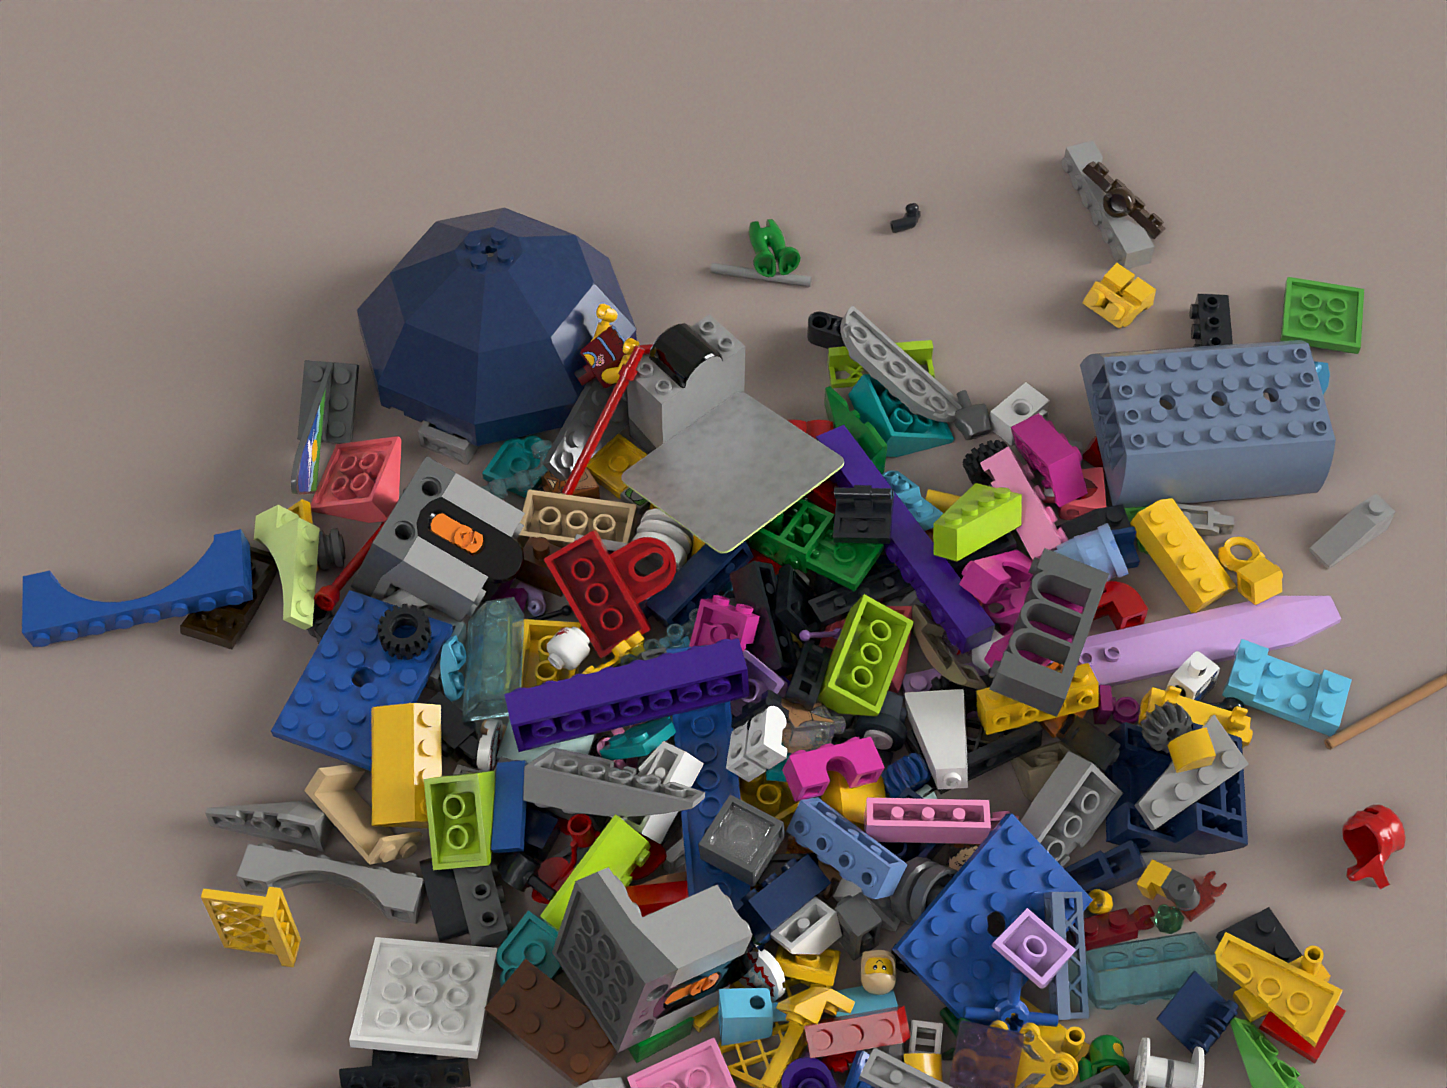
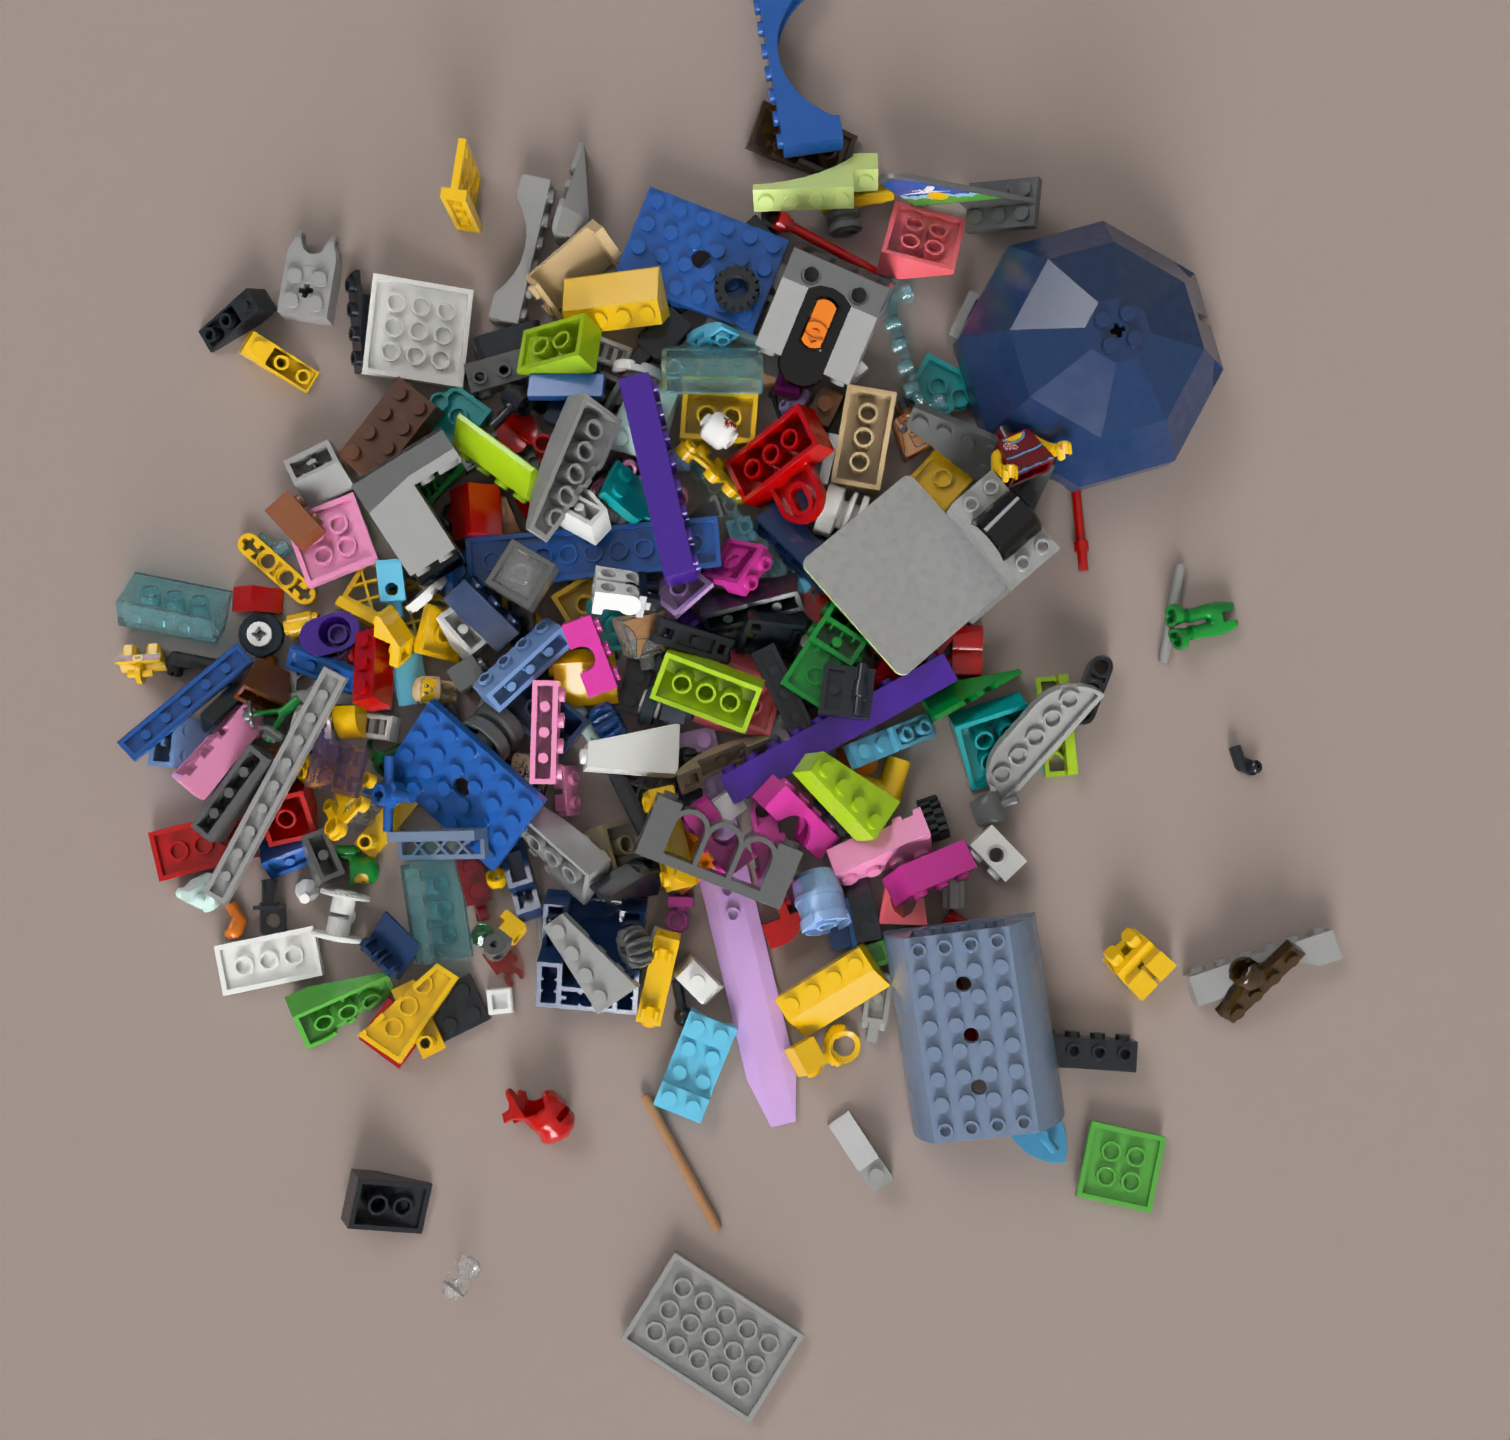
camera: 90 degrees right, 30 degrees up
(627, 374) = (982, 468): red bar -> none
(805, 635) = (733, 638): medium lavender hinge -> none
(1034, 948) = (427, 810): lavender slope -> none
(1192, 750) = (599, 962): yellow brick -> none
(1244, 899) = (500, 1000): none -> white tile

